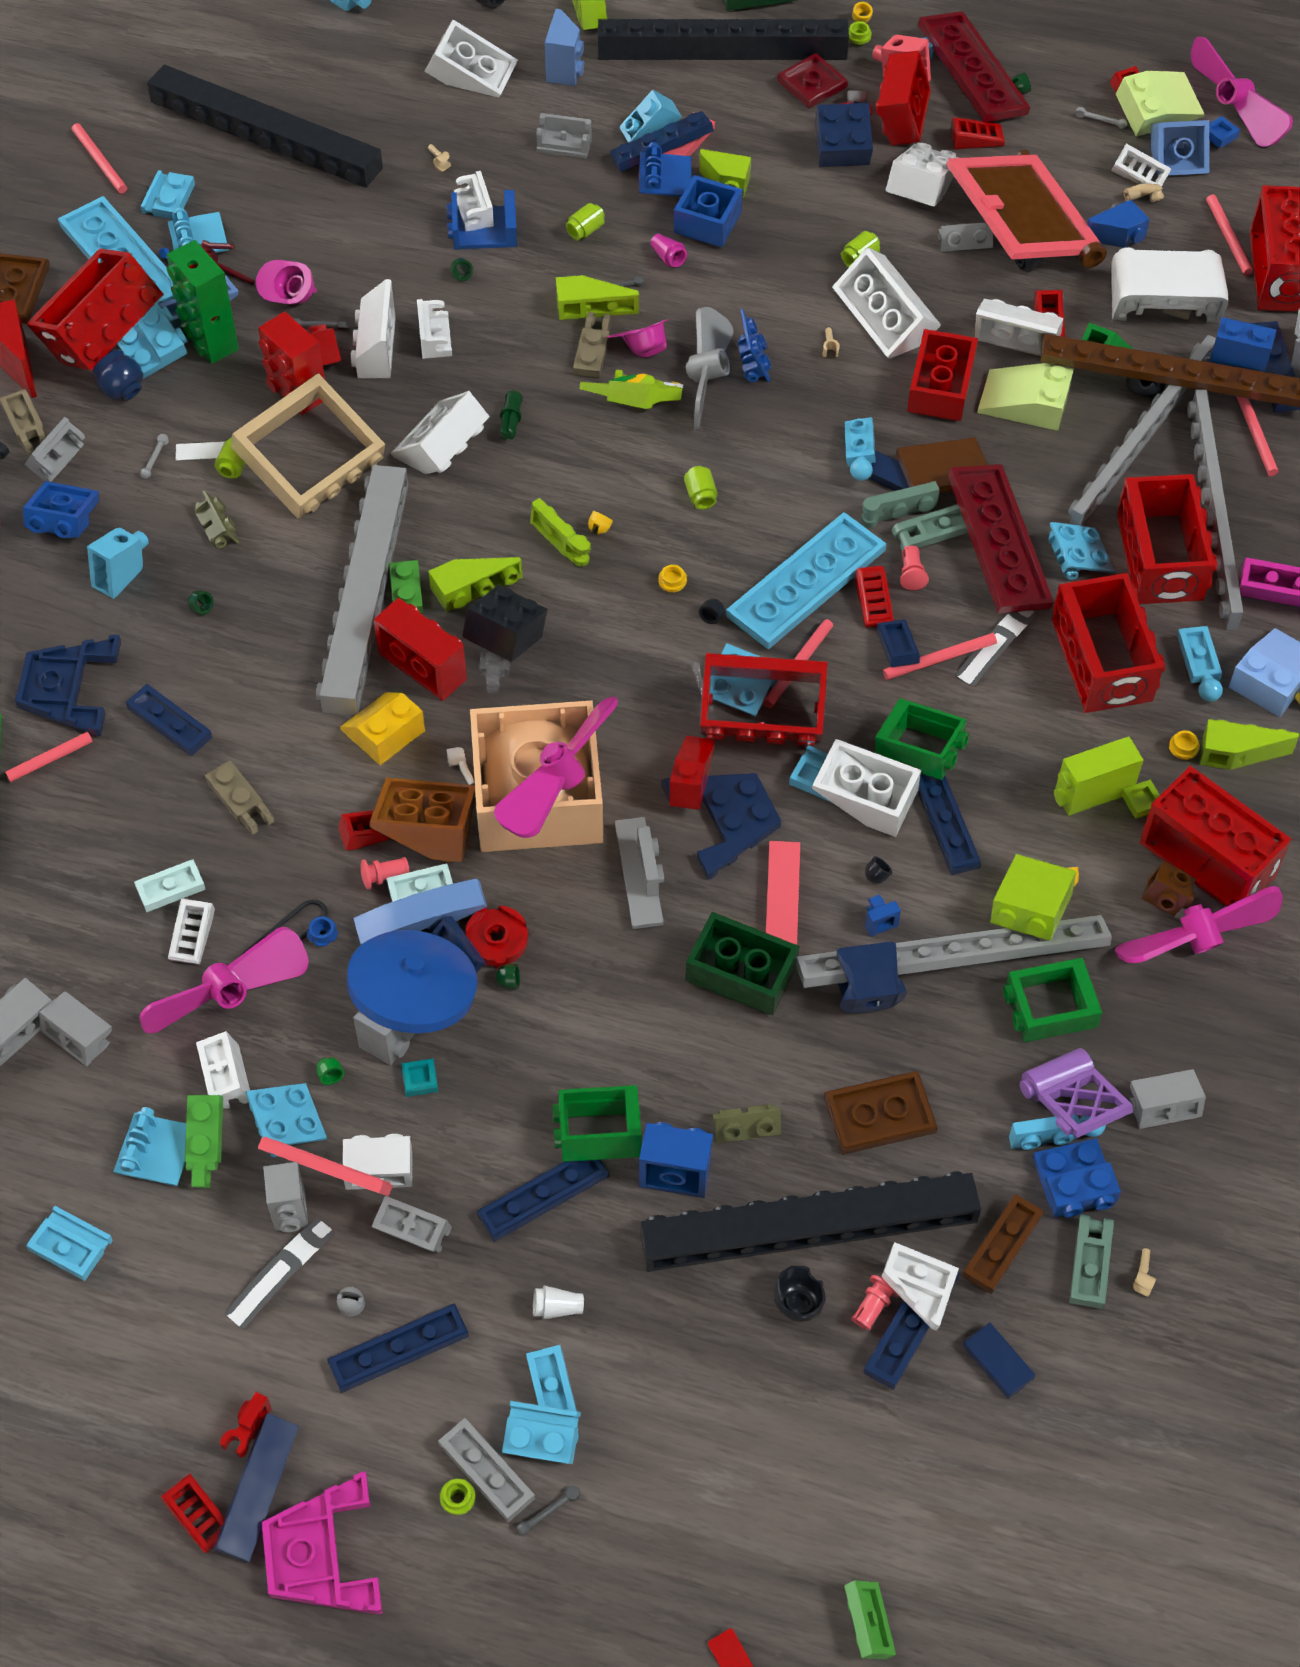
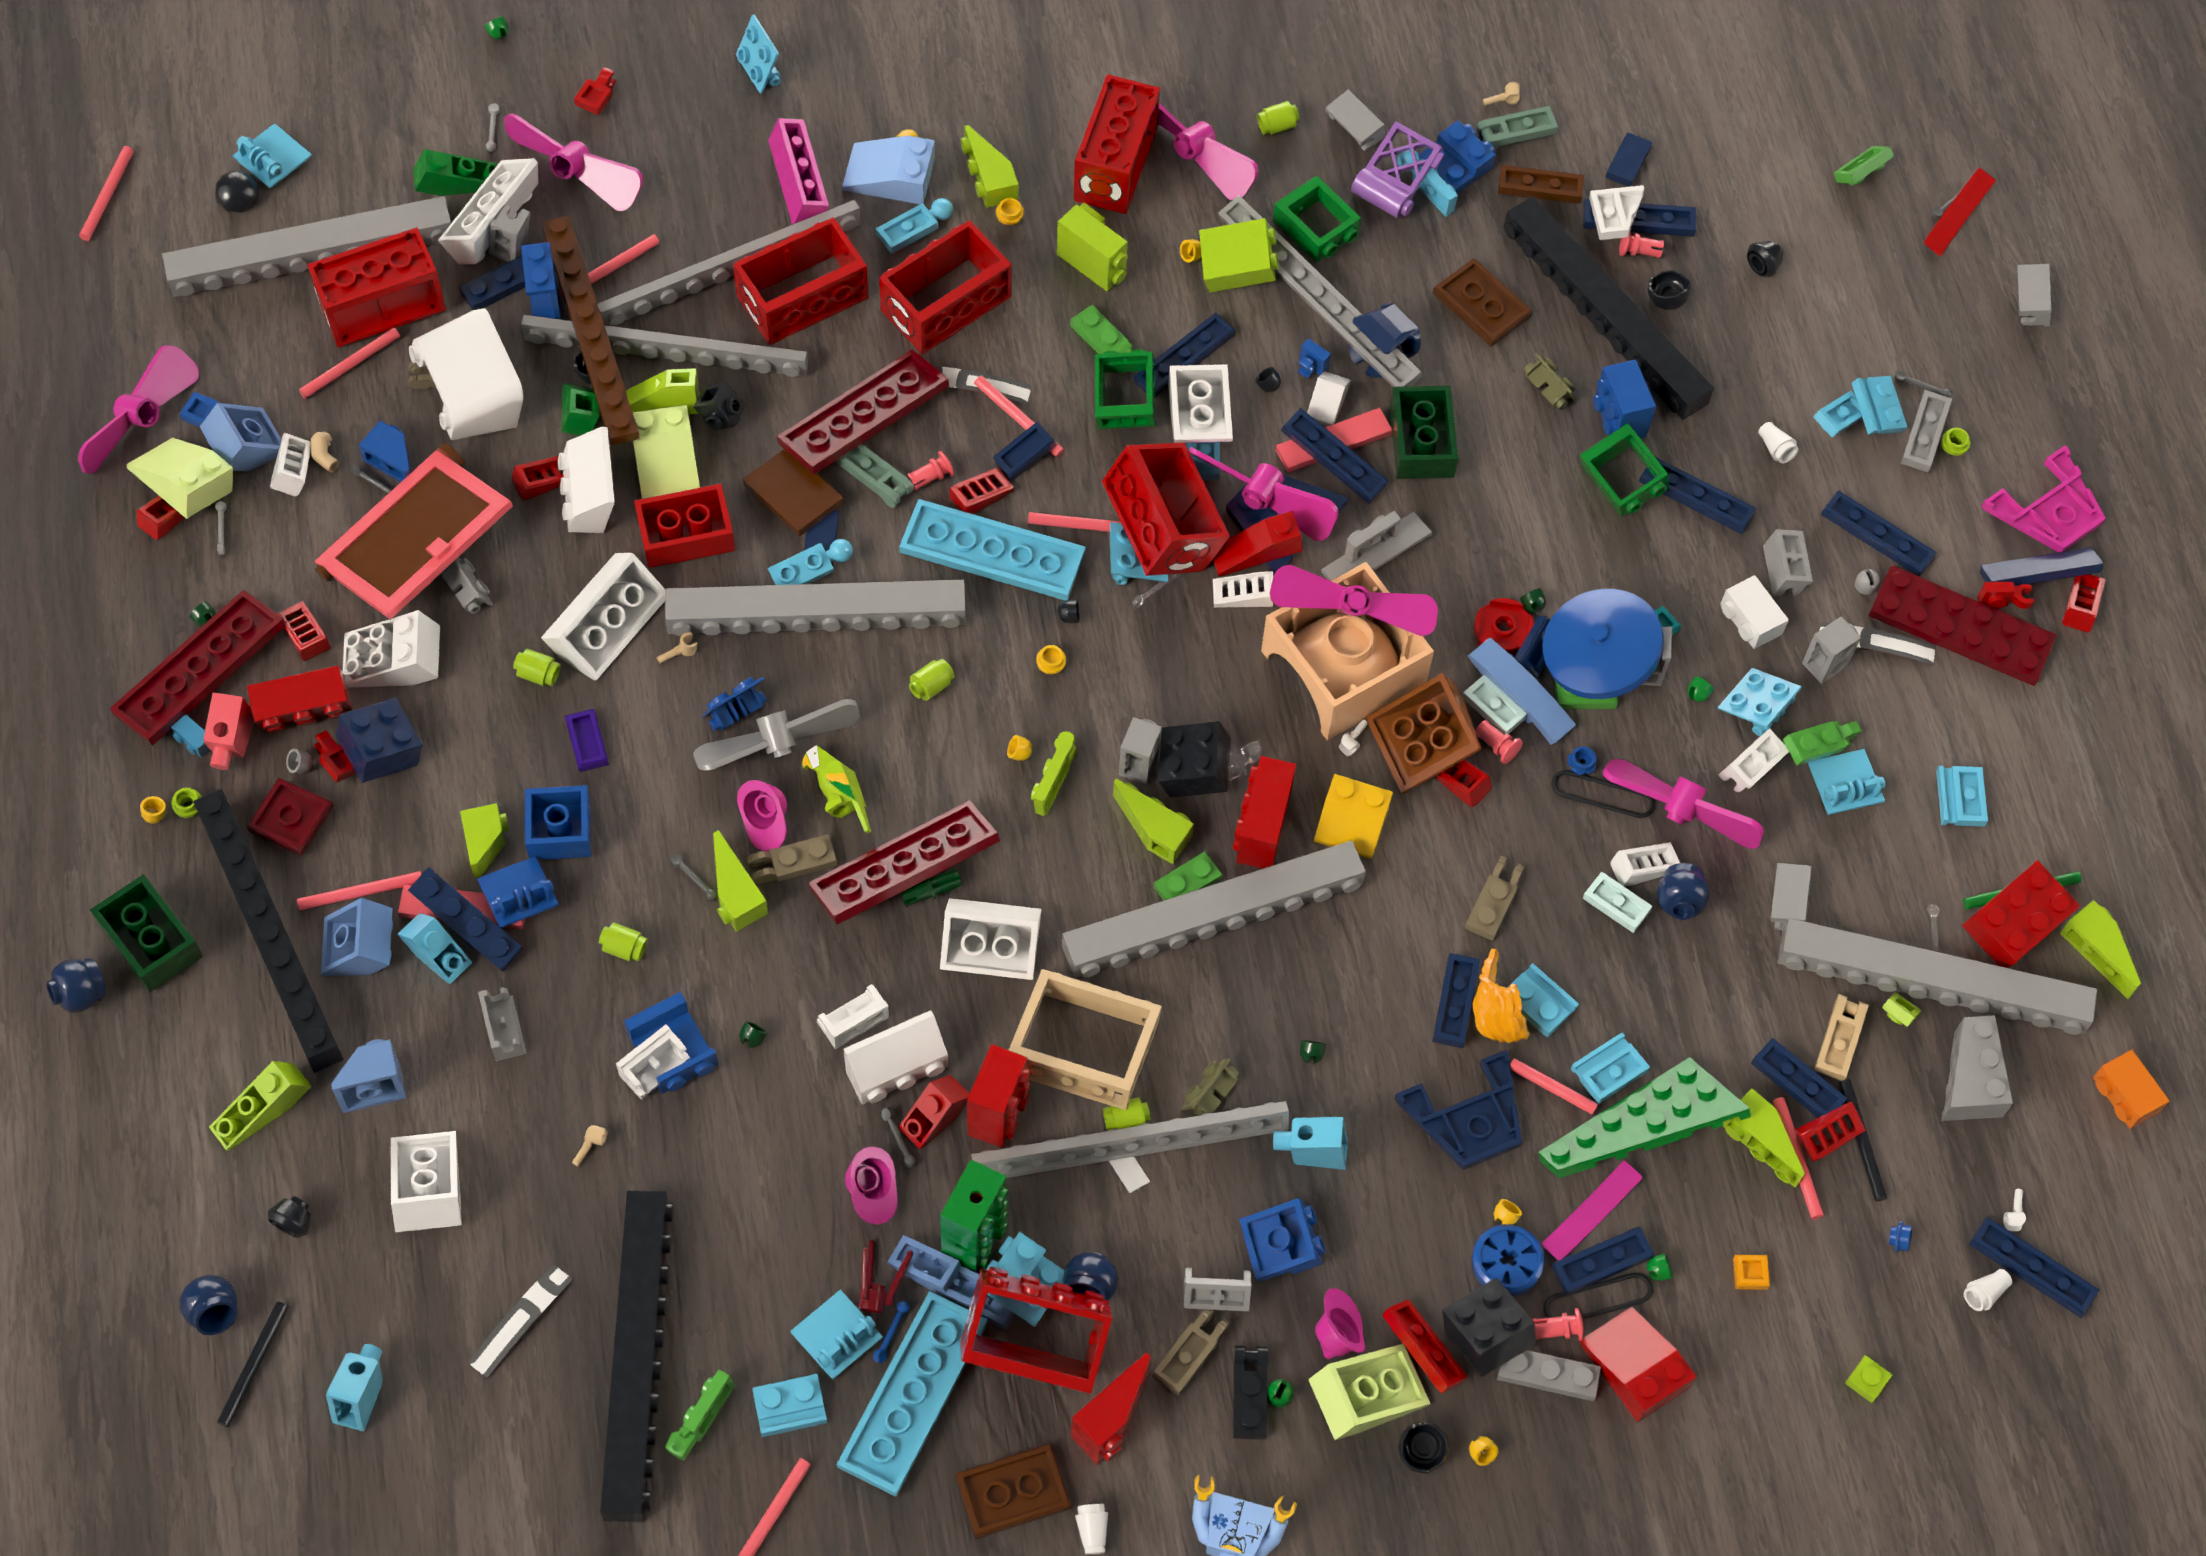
camera: 120 degrees left, 5 degrees up
(30, 801) = (1610, 1068): none -> medium azure plate
(127, 785) = (1543, 1000): none -> medium azure plate
(132, 735) = (1497, 1007): none -> light orange hair
(137, 932) = (1683, 891): none -> dark blue piece
(162, 440) = (1133, 1206): light grey hinge -> none
(195, 145) = (700, 1417): none -> bright green hinge
(206, 458) = (1136, 1140): none -> light grey plate
(250, 1360) = (1962, 625): none -> dark red plate
(326, 1166) = (1797, 625): coral tile -> none
(338, 86) = (519, 1320): none -> sticker
(537, 581) = (1140, 750): none -> light grey brick
(540, 402) = (903, 862): none -> dark red plate
(653, 767) = (1254, 599): none -> white slope
(670, 251) = (624, 845): dark pink cone -> none
(682, 83) = (357, 939): none -> medium blue slope
(727, 102) = (357, 891): none -> coral bar
(752, 789) = (1265, 488): none -> dark pink piece
(761, 880) = (1334, 455): none -> dark blue tile
(779, 263) = (586, 740): none -> dark purple tile
(792, 1424) = (1765, 257): none -> black cone
(814, 440) = (815, 607): none -> light grey brick
(835, 915) = (1328, 398): none -> white slope
(899, 503) = (864, 508): sand green plate -> none
(998, 761) = (1099, 332): none -> bright green hinge
(1054, 439) = (719, 406): none -> black brick
(1078, 549) = (838, 352): medium azure hinge -> none
(1087, 409) = (666, 390): none -> lime slope
(1169, 889) = (1169, 171): reddish brown brick -> none
(1202, 1026) = (1278, 118): none -> lime brick

